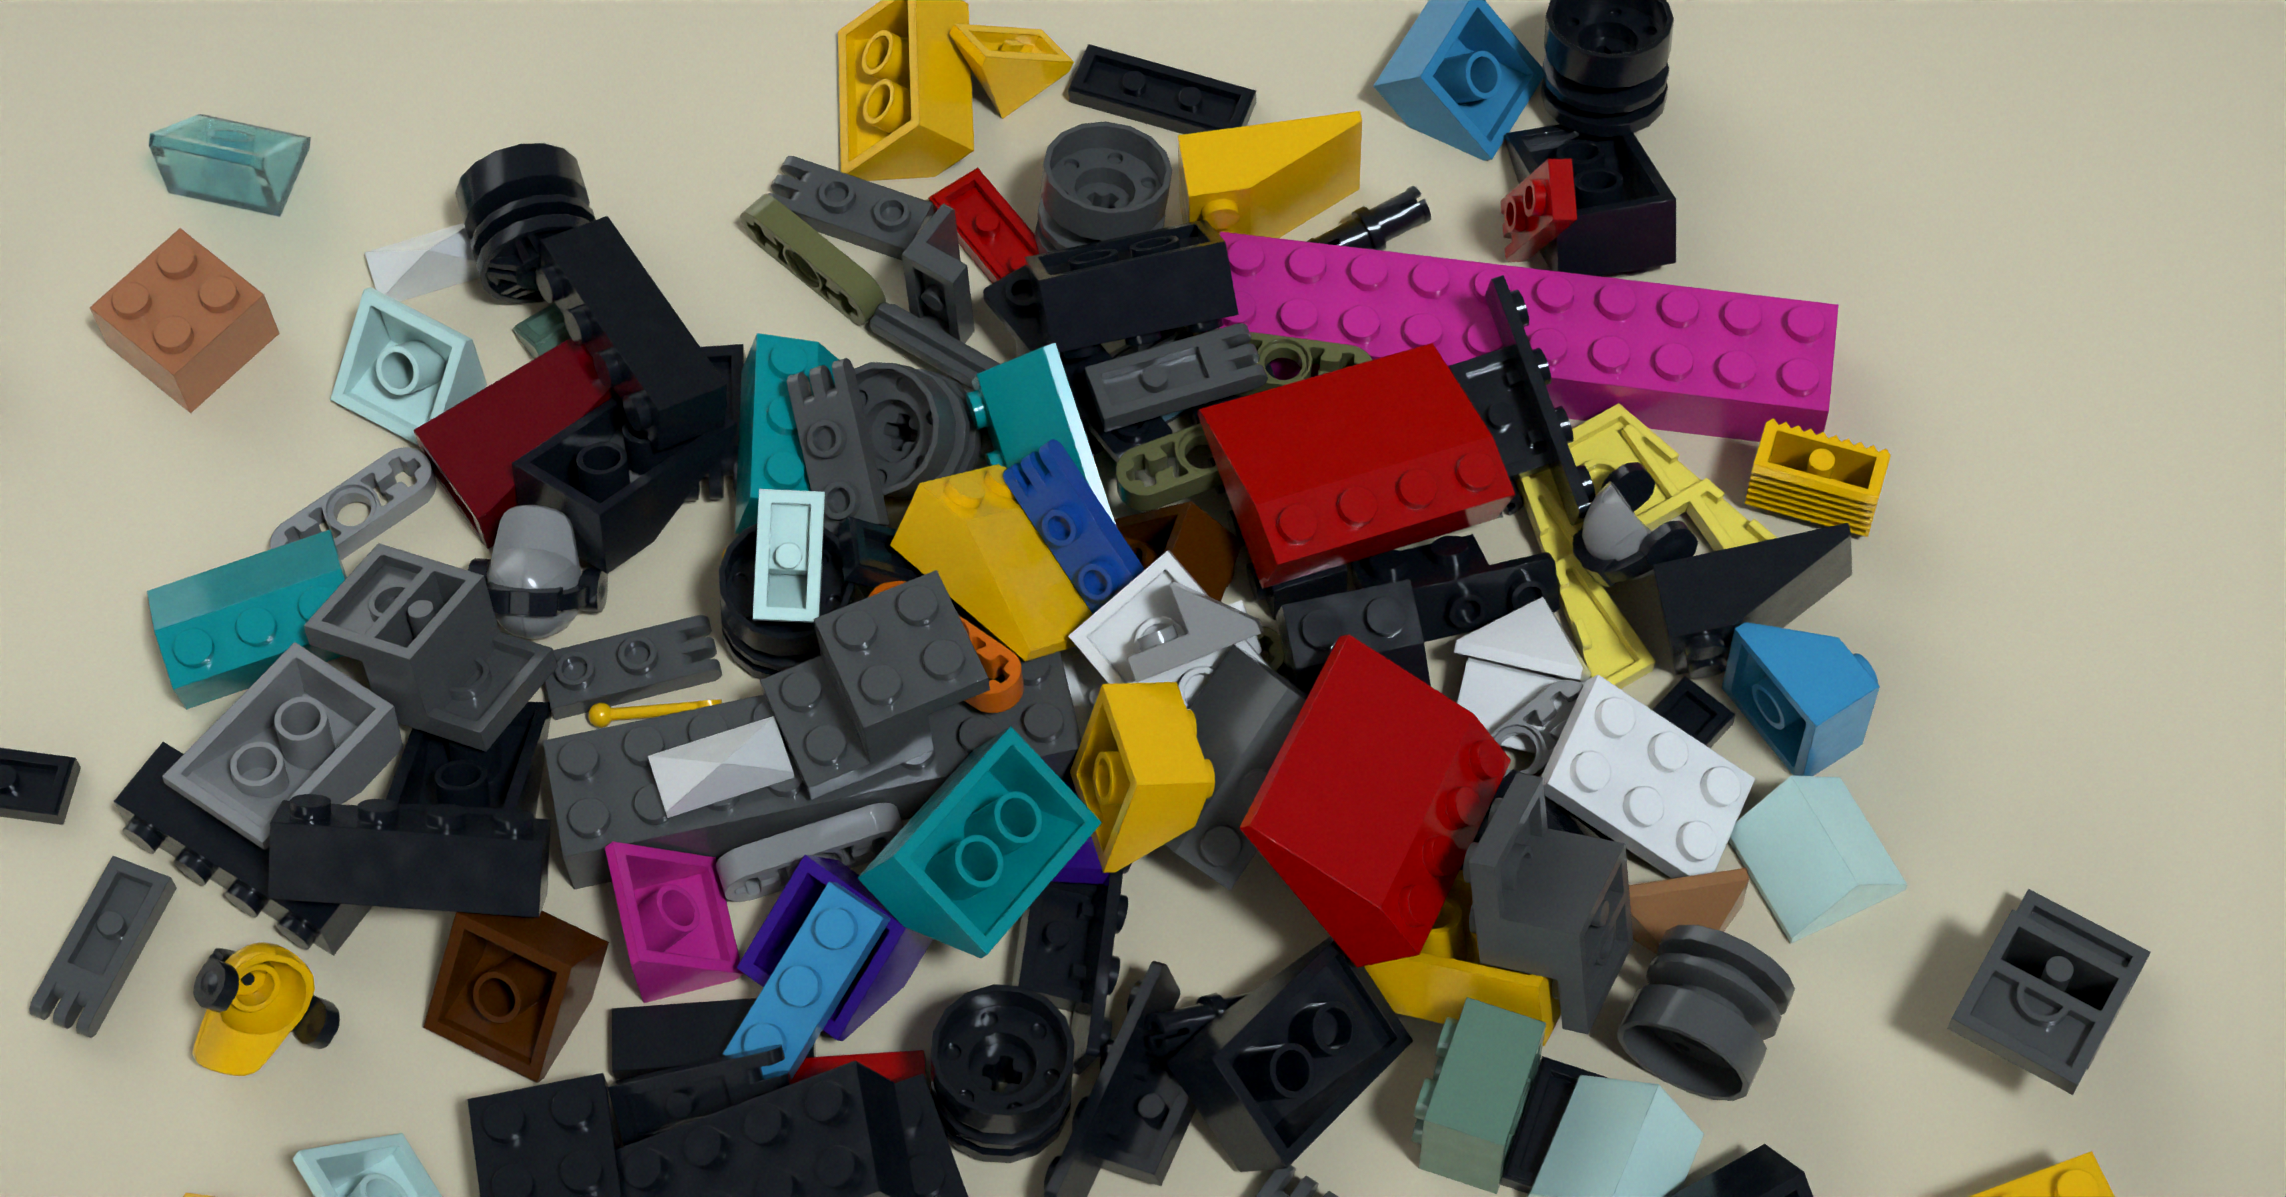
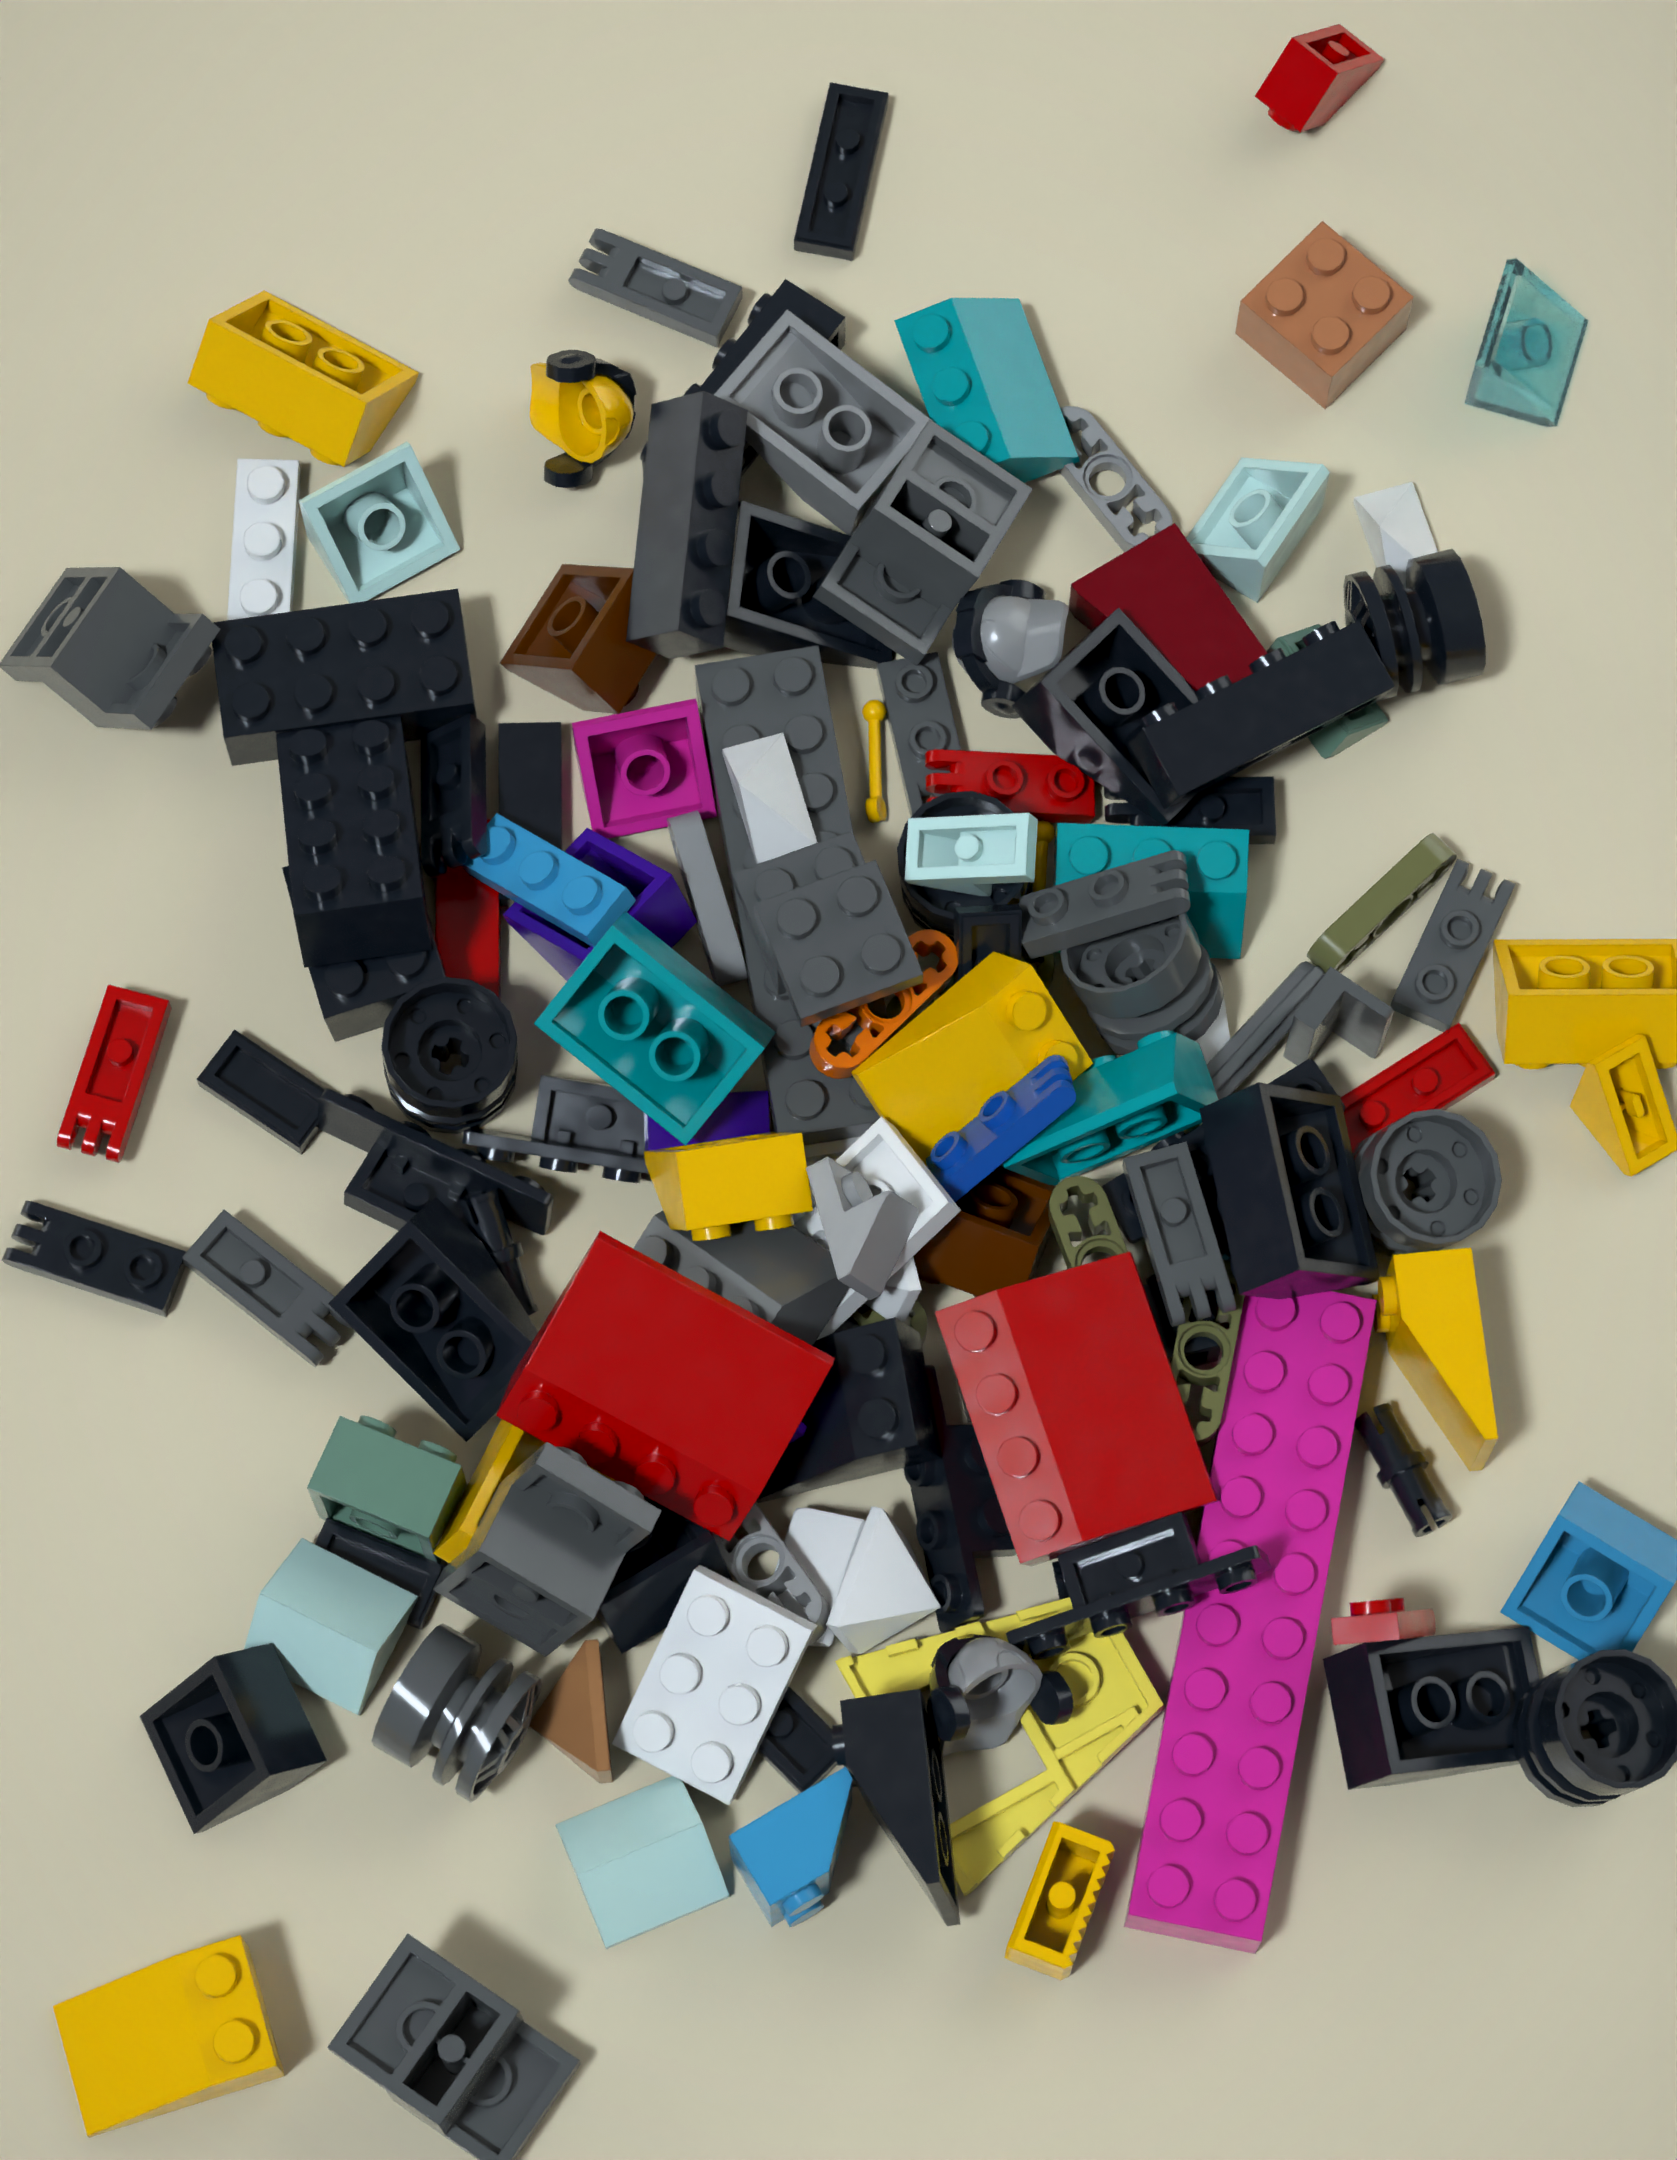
camera: 90 degrees right, 10 degrees up
(689, 579) = (1022, 782): none -> red hinge
(1158, 93) = (1589, 1269): black tile -> none

